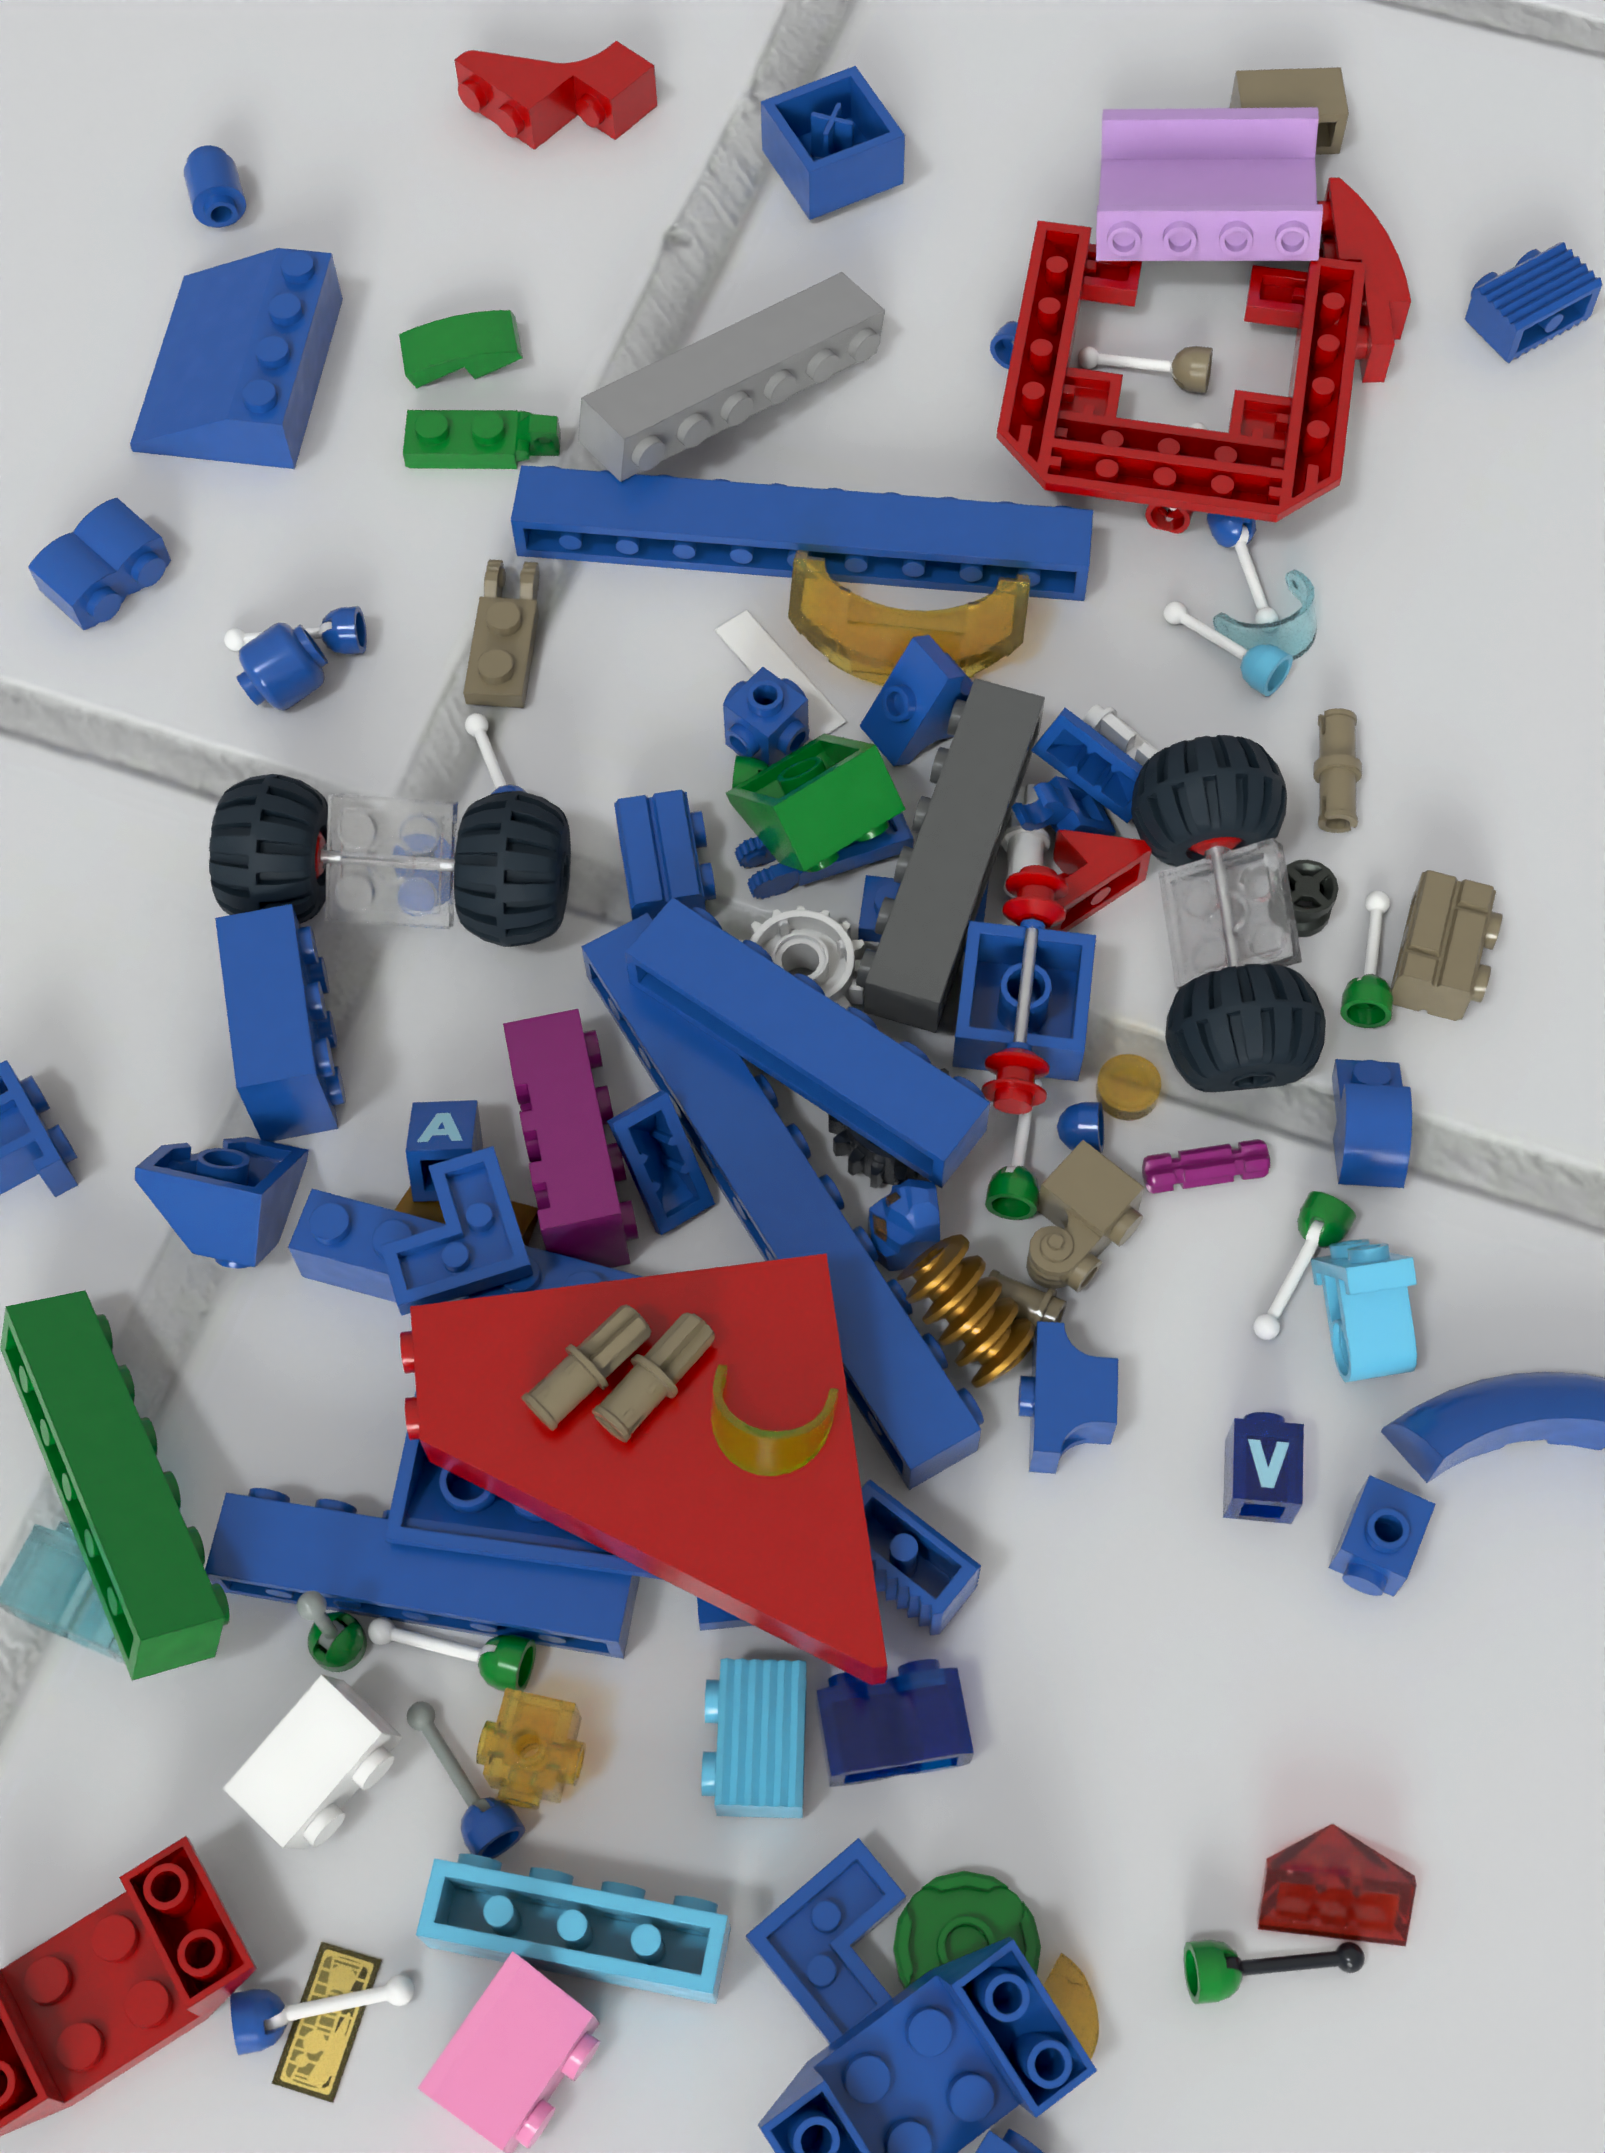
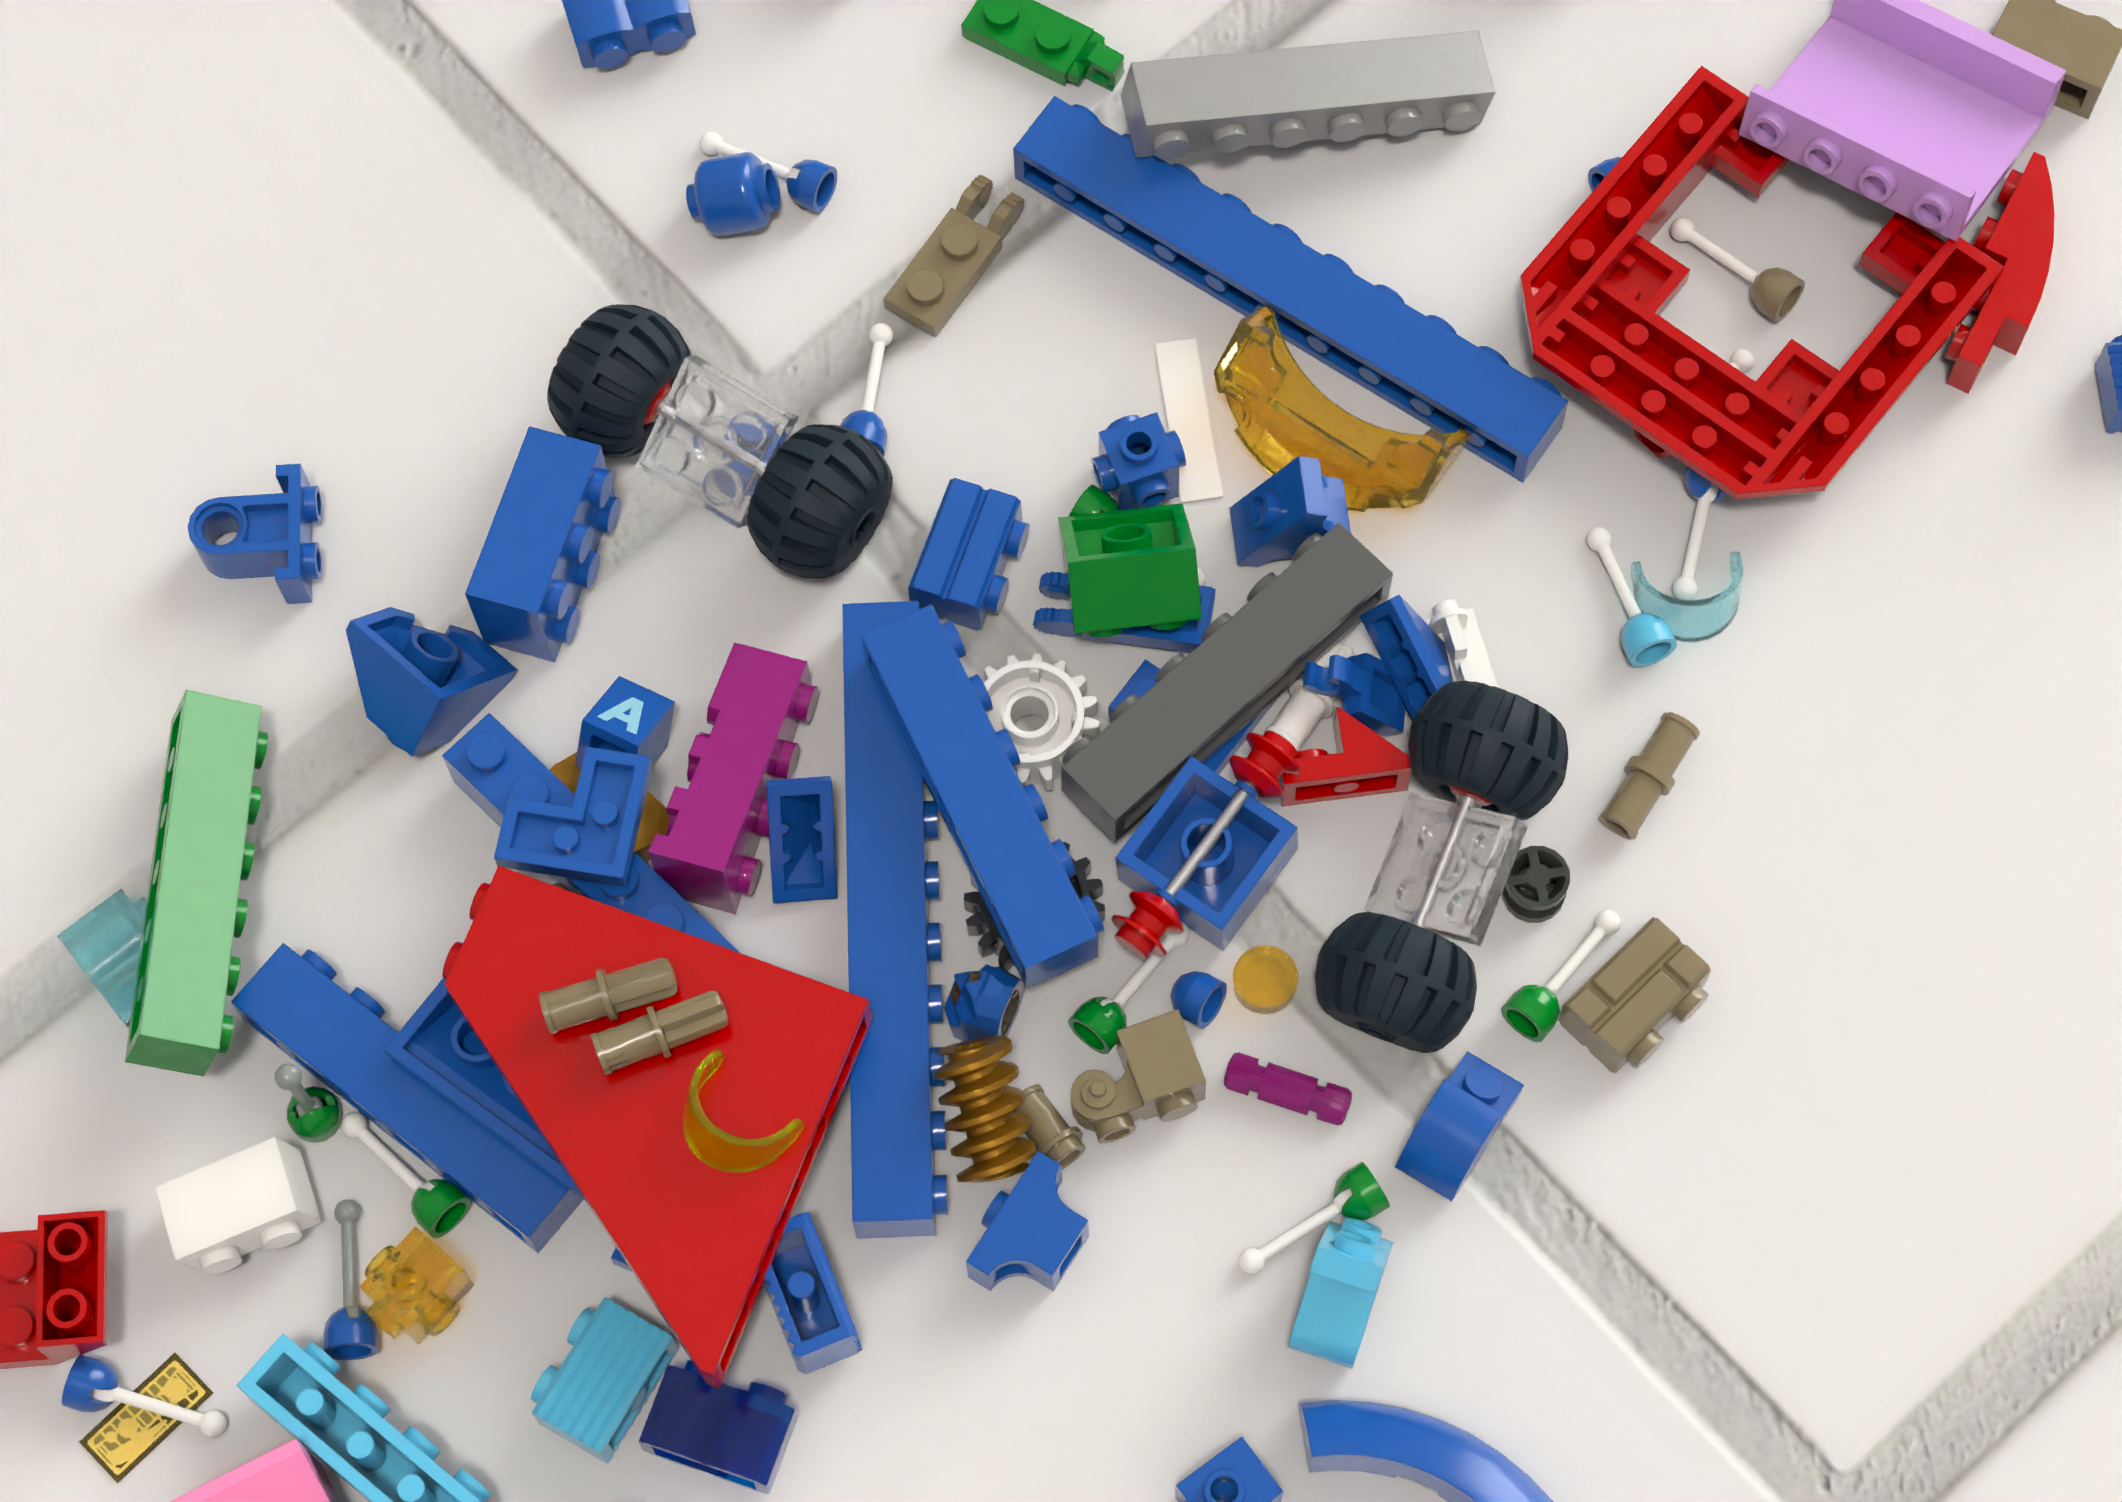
camera: 30 degrees right, 5 degrees up
(1263, 1469) = (1163, 1381): clear blue brick -> none

